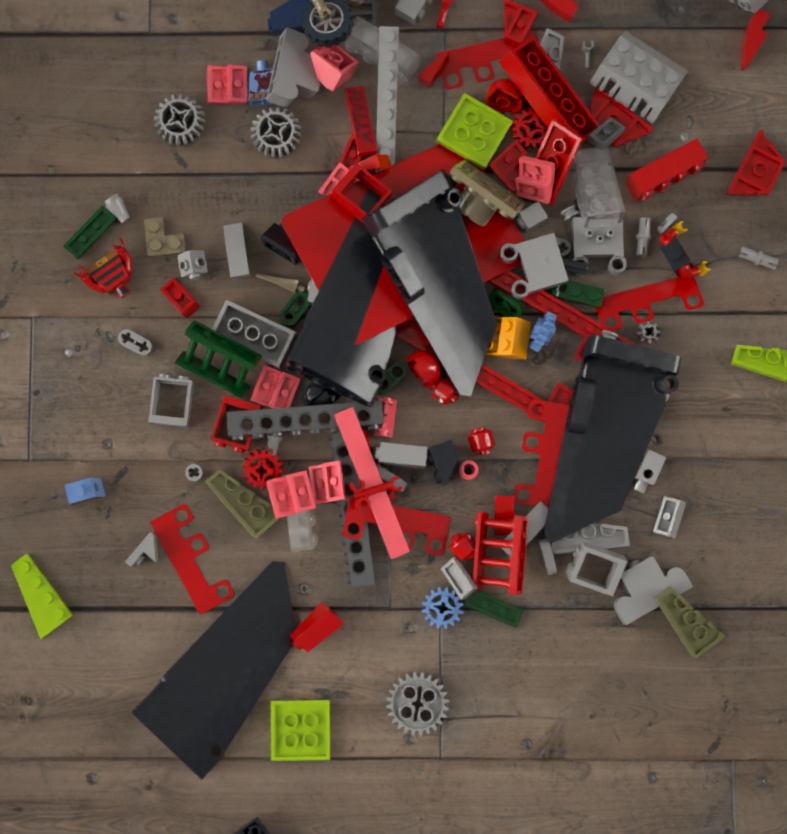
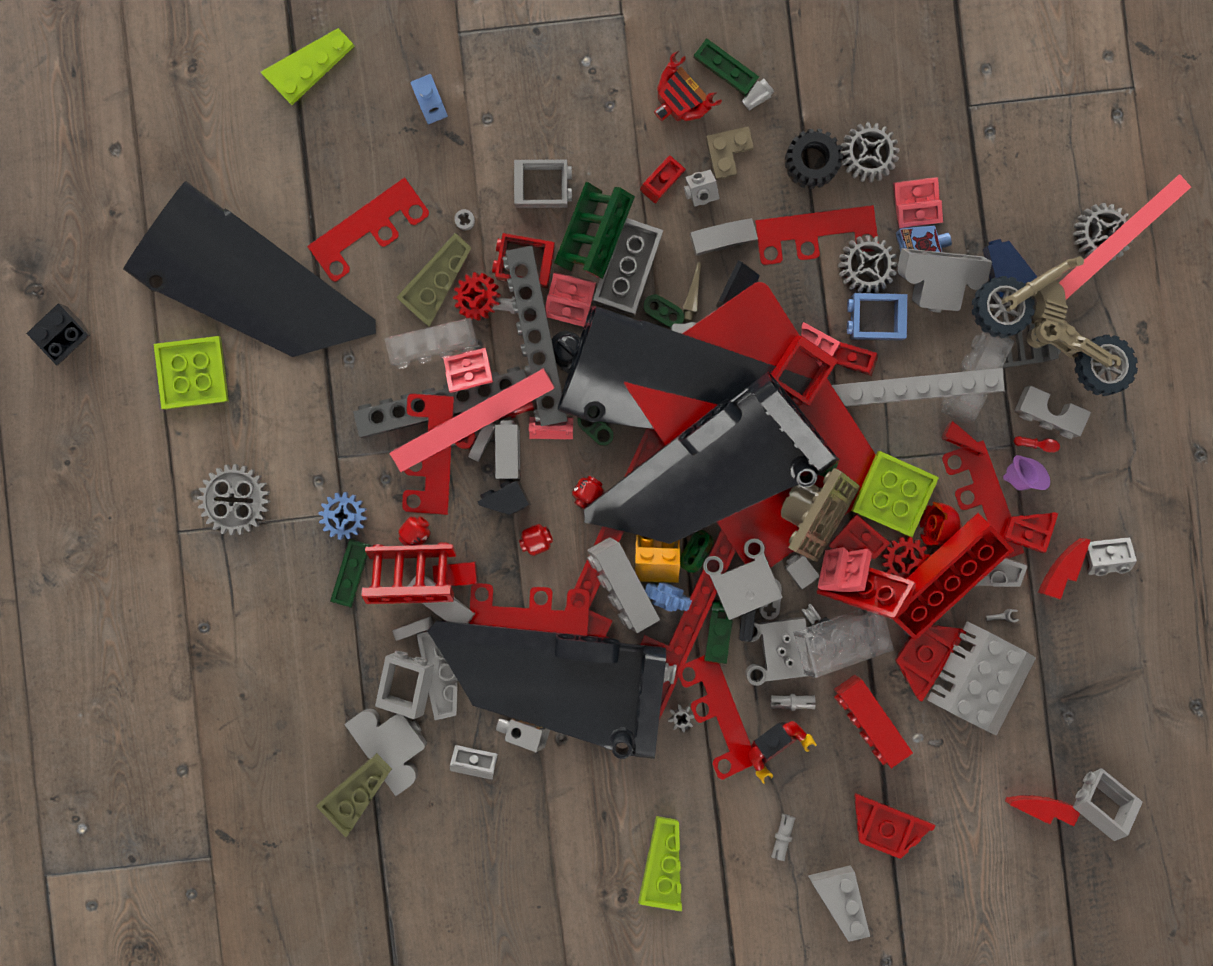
camera: 85 degrees right, 5 degrees up
(137, 339) = (600, 133): light grey beam -> none
(148, 547) = (374, 178): light grey slope -> none
(175, 152) = (826, 146): none -> black tyre
(236, 176) = (810, 226): none -> red piece
(291, 494) = (448, 330): coral slope -> none
(316, 628) = (304, 377): red slope -> none
(326, 110) = (900, 317): none -> medium blue window
(333, 66) = (951, 321): coral slope -> none
(360, 121) = (891, 361): red tile -> none
(362, 493) = (456, 409): red bar -> none
(375, 162) = (842, 383): red slope -> none
(425, 367) = (611, 467): red cylinder -> none
(459, 578) = (377, 531): light grey tile -> none
(468, 464) = (493, 528): coral brick -> none
(469, 20) = (1027, 474): none -> medium lavender piece
(528, 368) = (623, 585): none -> light grey brick
(606, 133) = (907, 647): dark grey plate -> none
(666, 223) = (812, 727): light grey tile -> none

